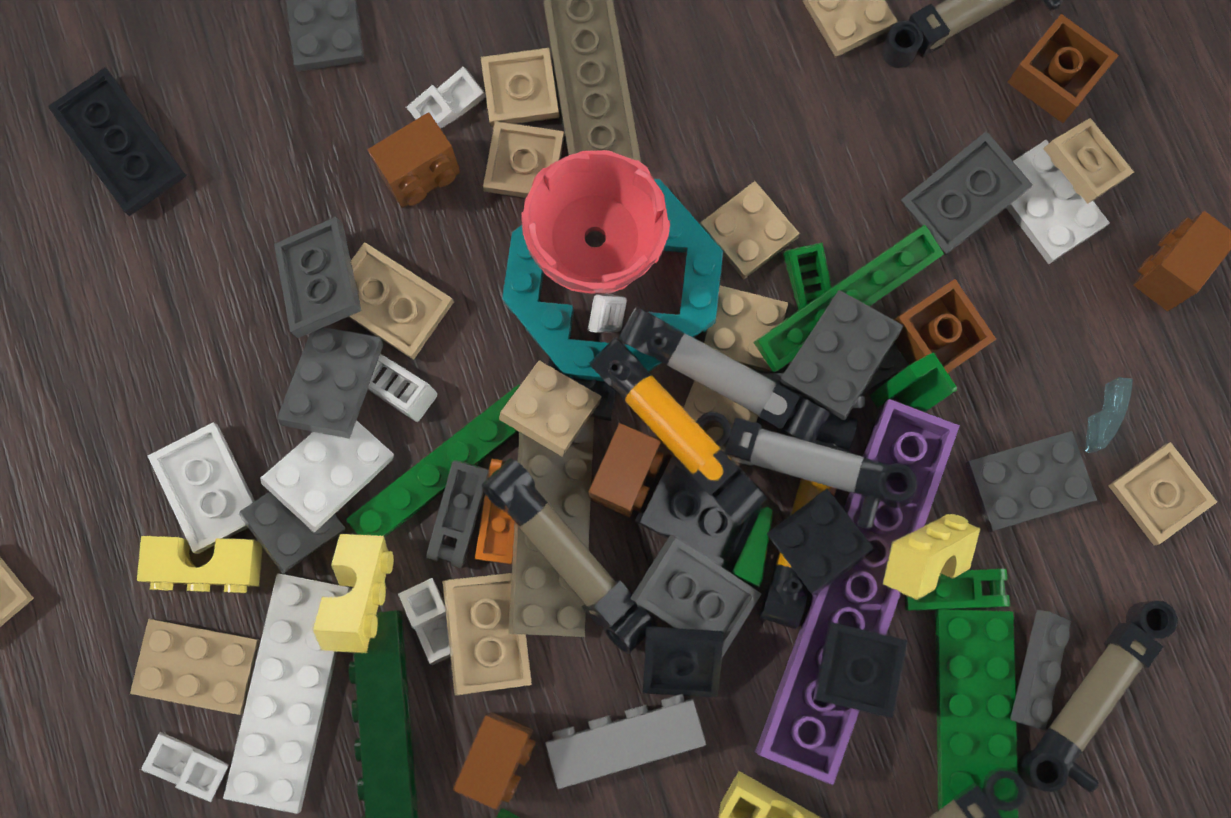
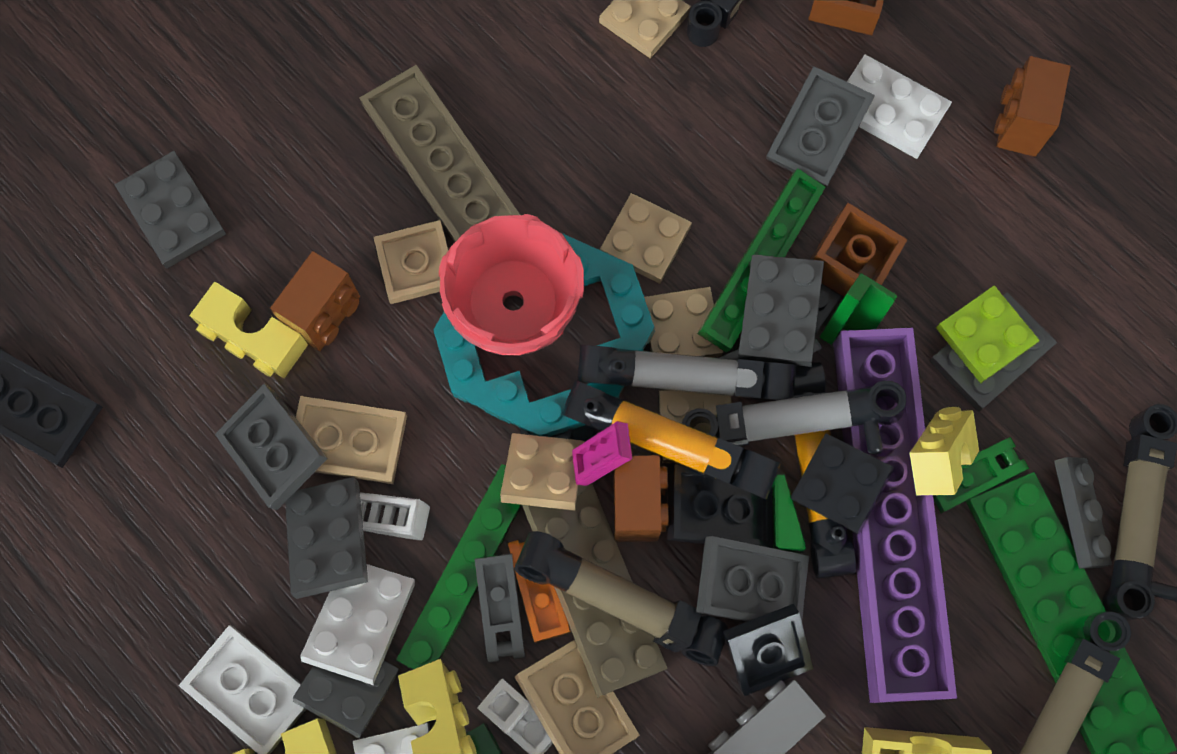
camera: 25 degrees left, 5 degrees down
(328, 138) = (223, 316): none -> light yellow arch
(448, 100) = (322, 234): white slope -> none
(520, 87) = (382, 197): tan plate -> none
(607, 313) = (554, 364): white slope -> none
(607, 416) = (602, 453): none -> dark pink plate
(794, 270) = (703, 257): green slope -> none
(860, 669) = (932, 582): black plate -> none
(1031, 462) = (987, 334): none -> lime plate
(1088, 160) = (909, 56): tan plate -> none
(1104, 424) = (1033, 274): clear light blue slope -> none
(1162, 494) = (1109, 313): tan plate -> none

